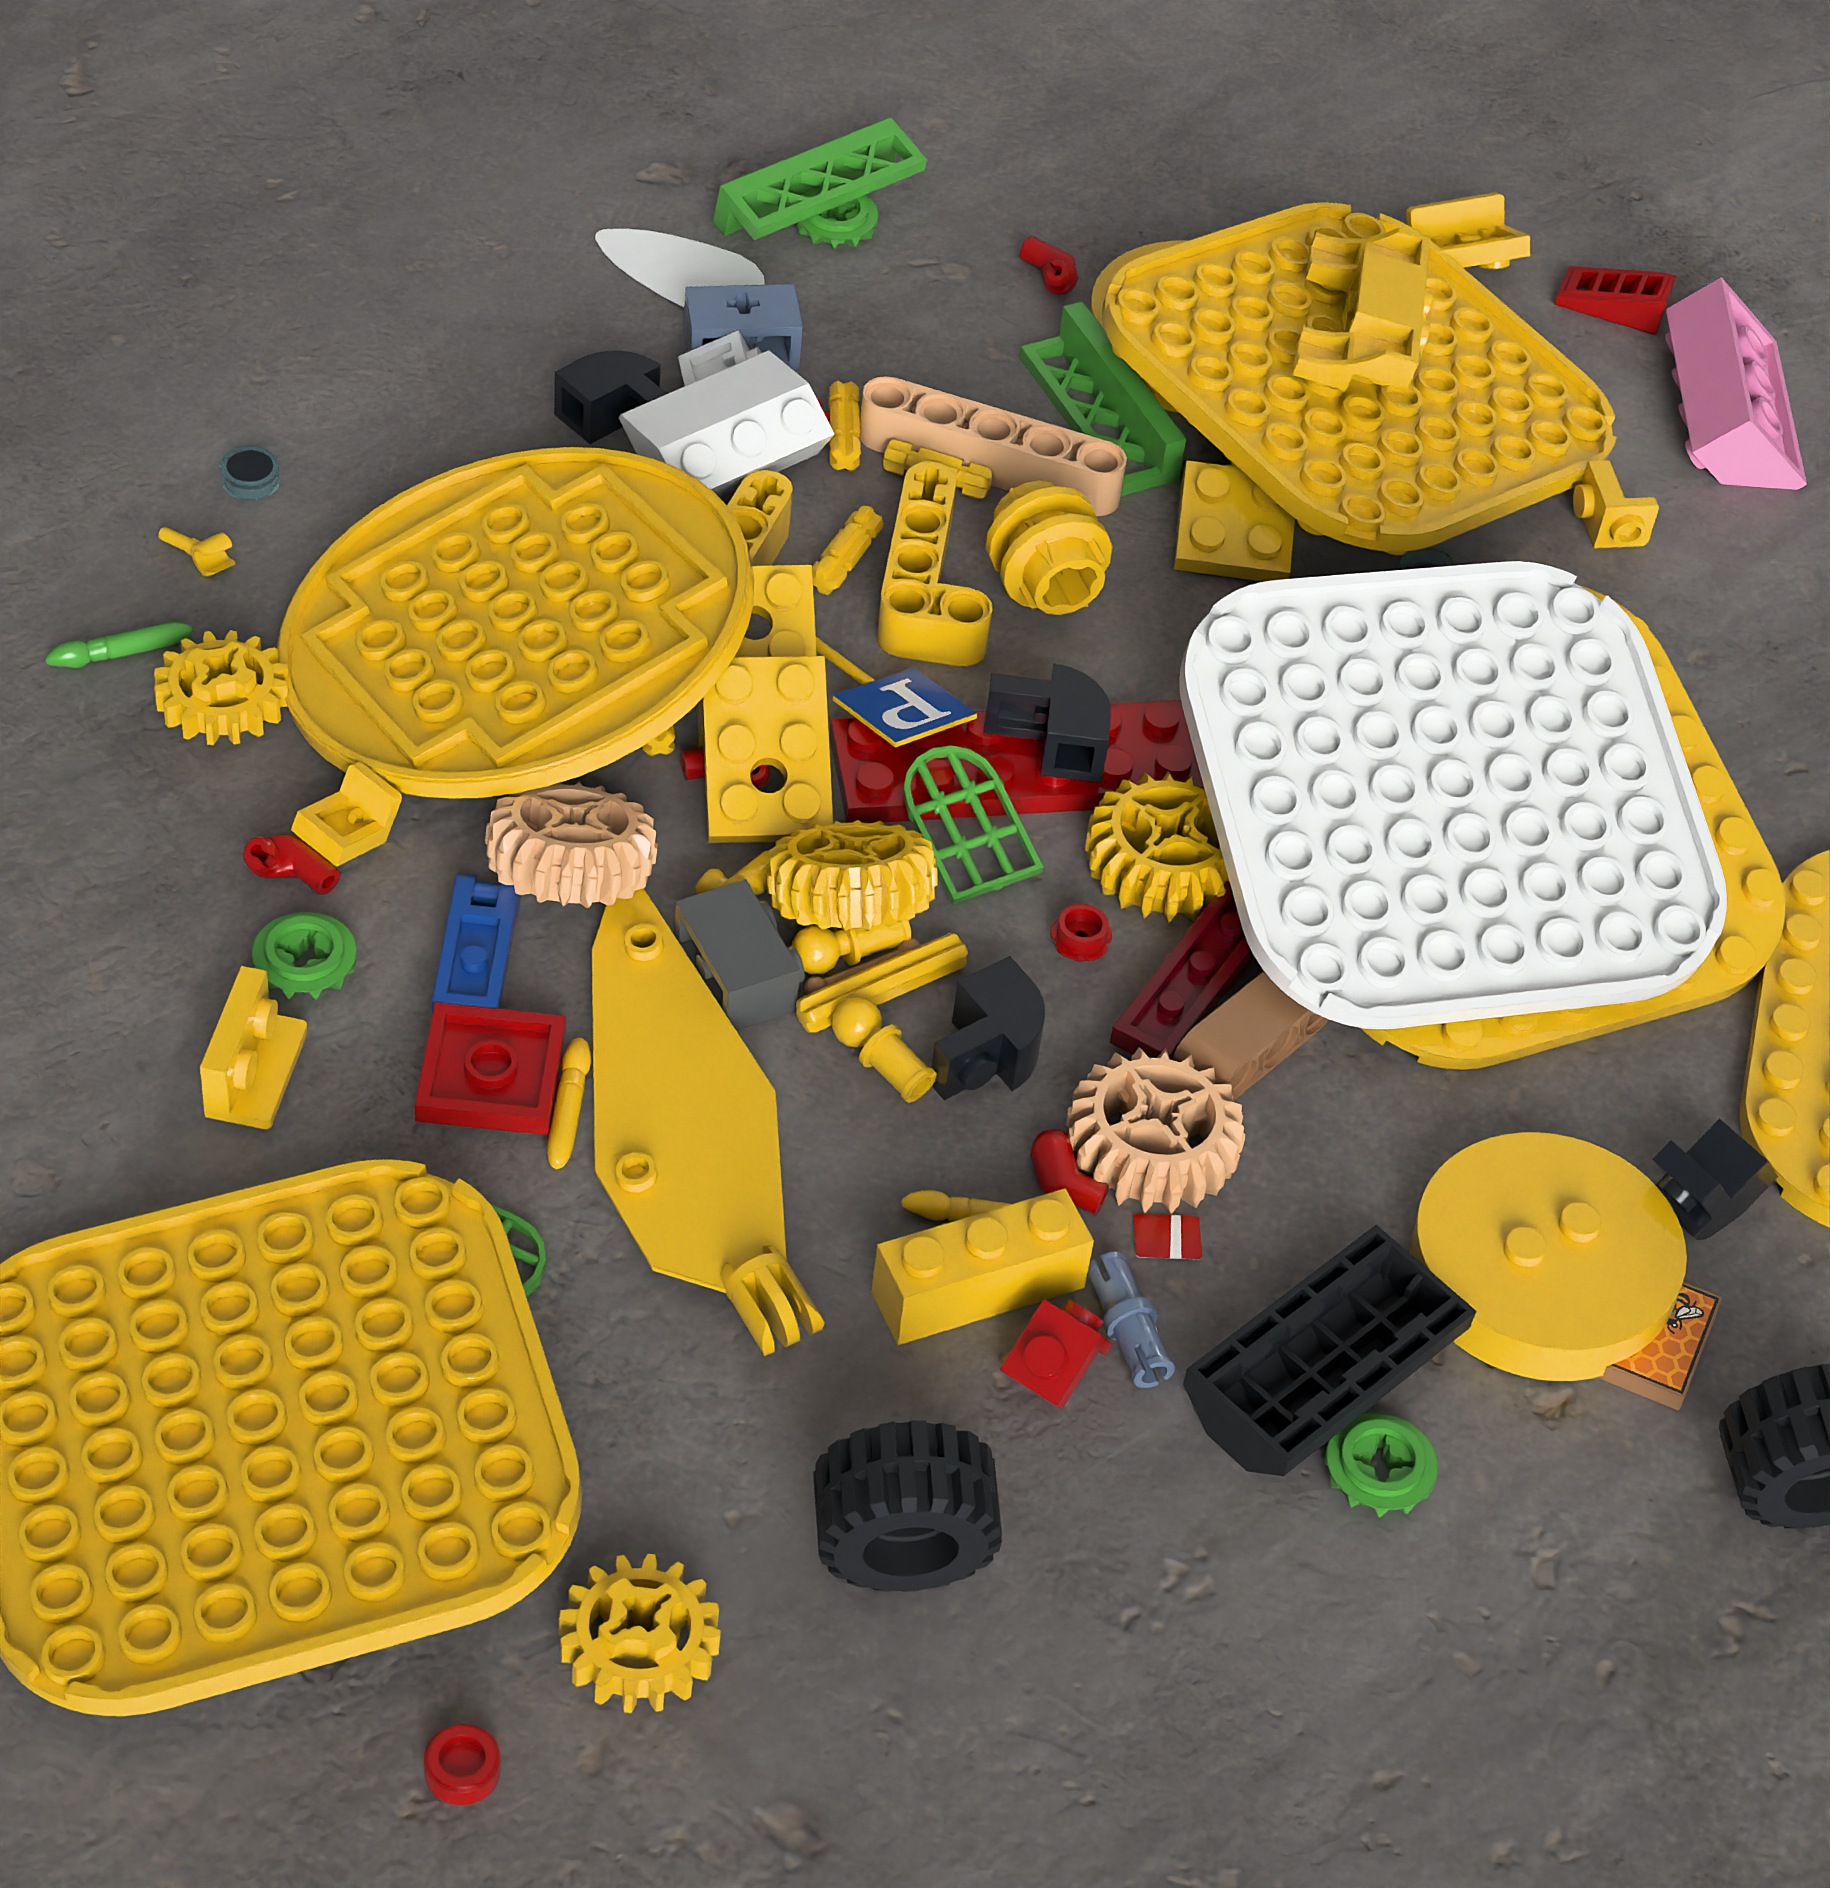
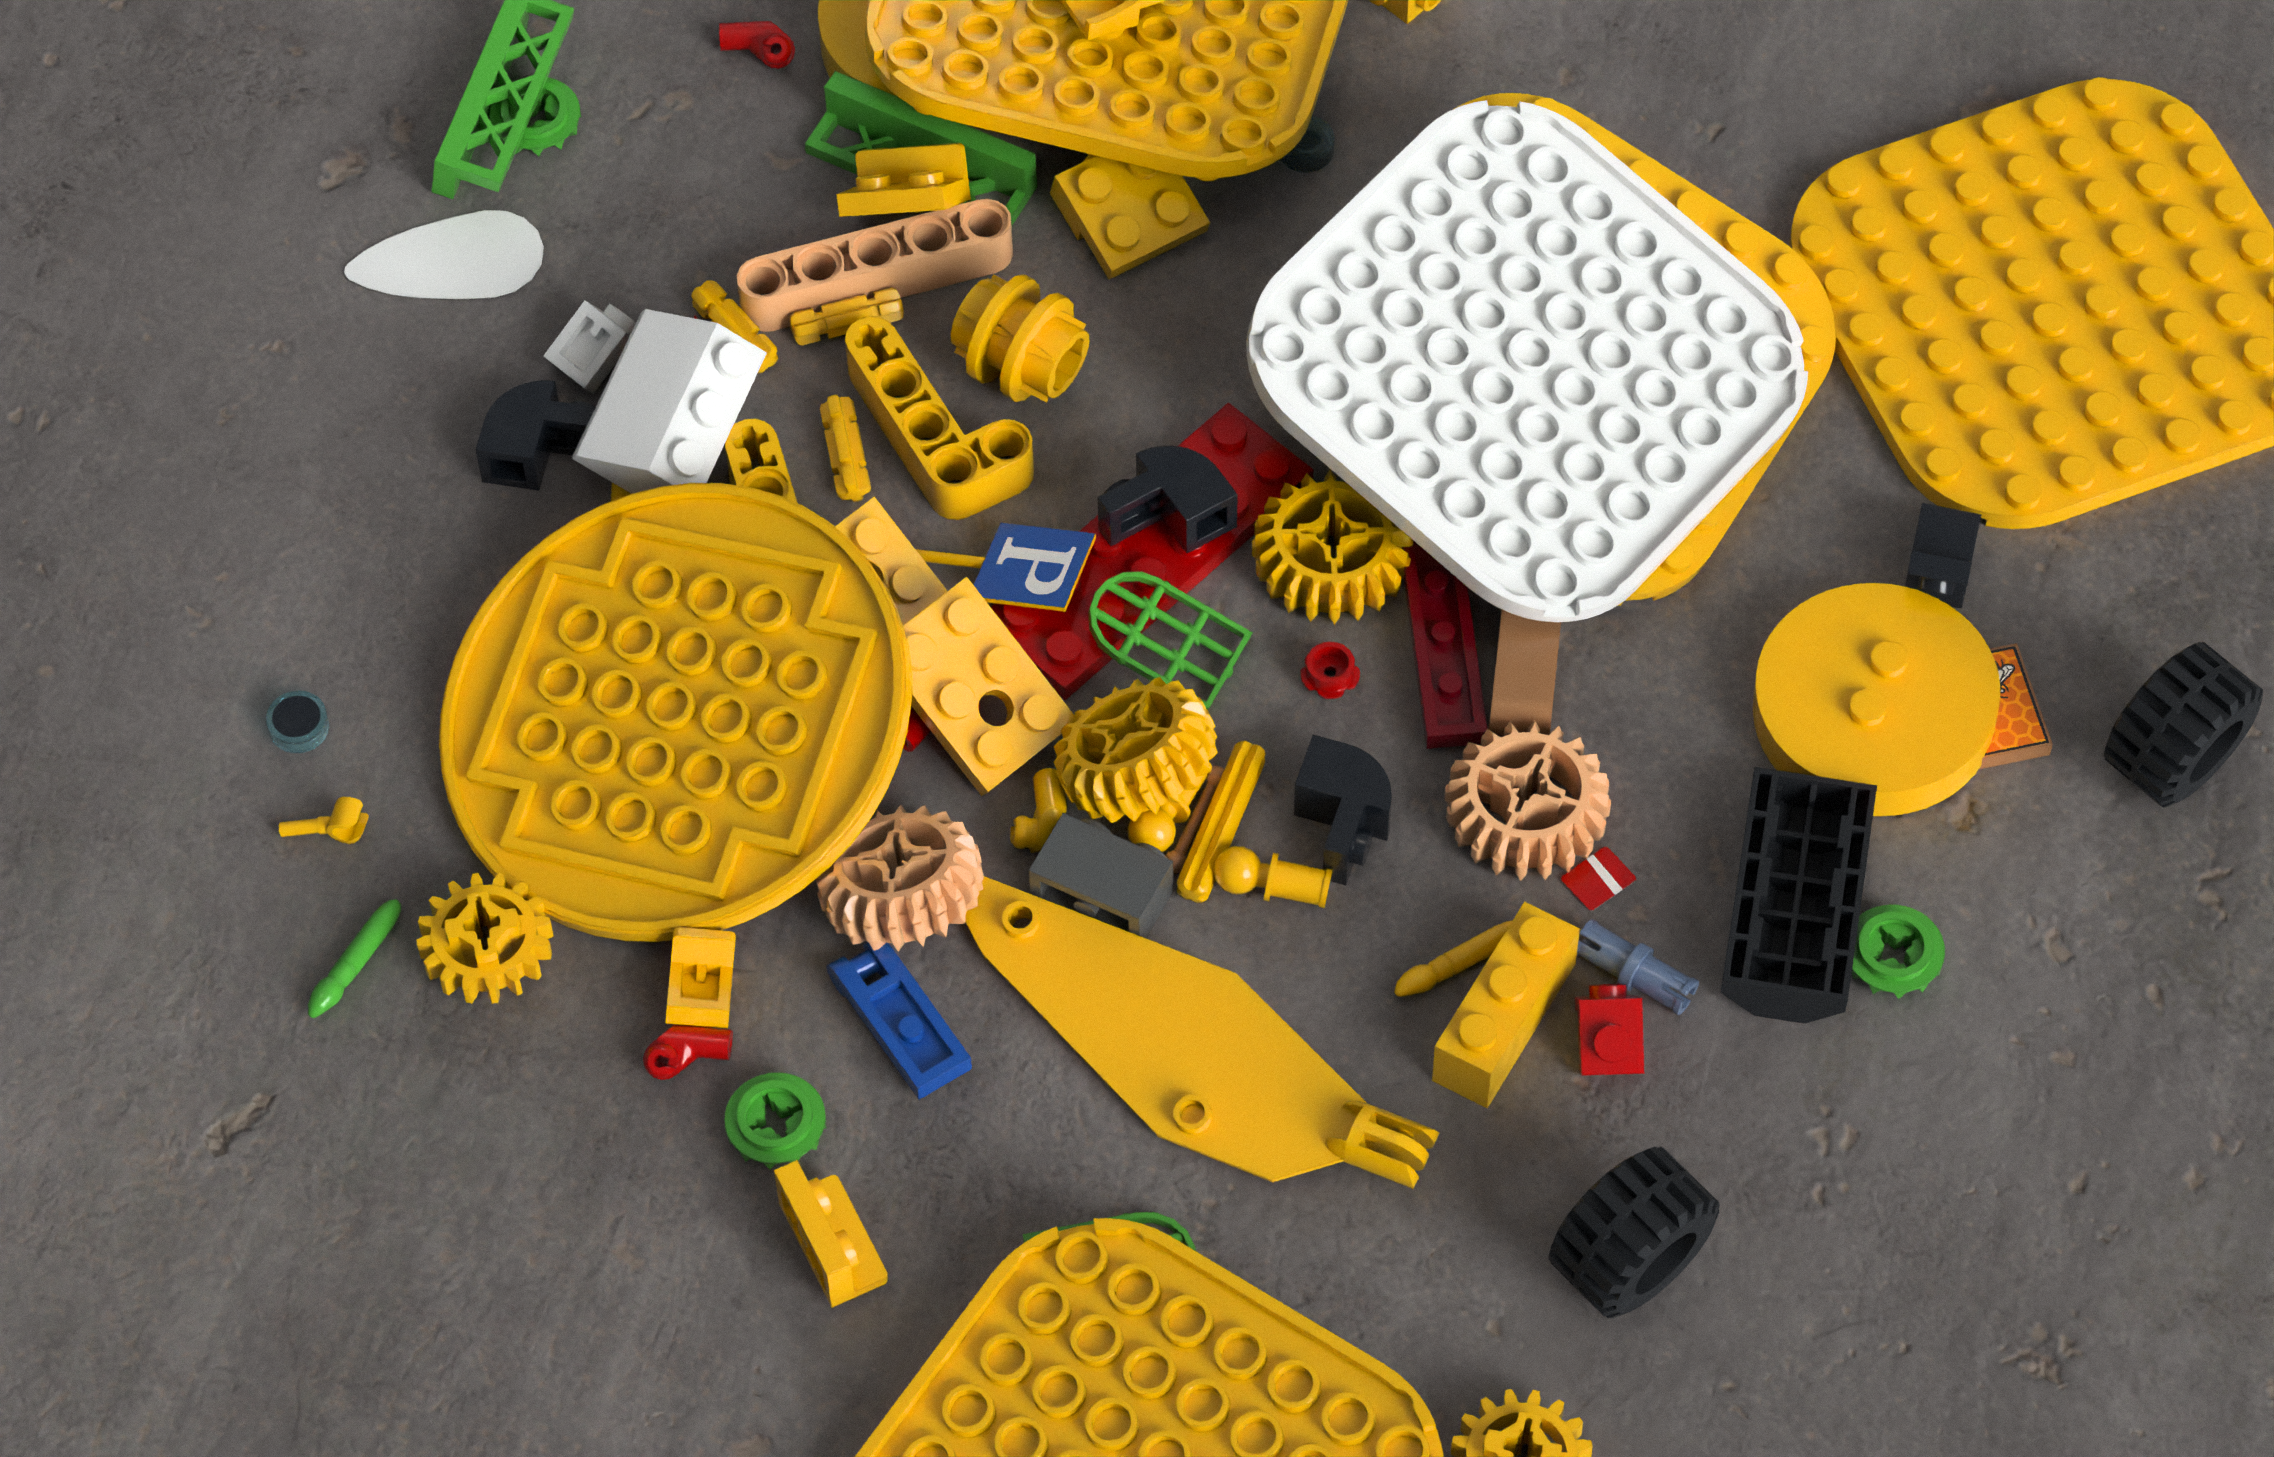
camera: 30 degrees left, 10 degrees up
(490, 1068) = (1008, 1109): red plate -> none
(568, 1102) = (1080, 1087): yellow piece -> none
(762, 313) = (554, 286): sand blue brick -> none
(1057, 1170) = (1485, 885): red arm -> none
(1066, 400) = (907, 180): none -> yellow bracket

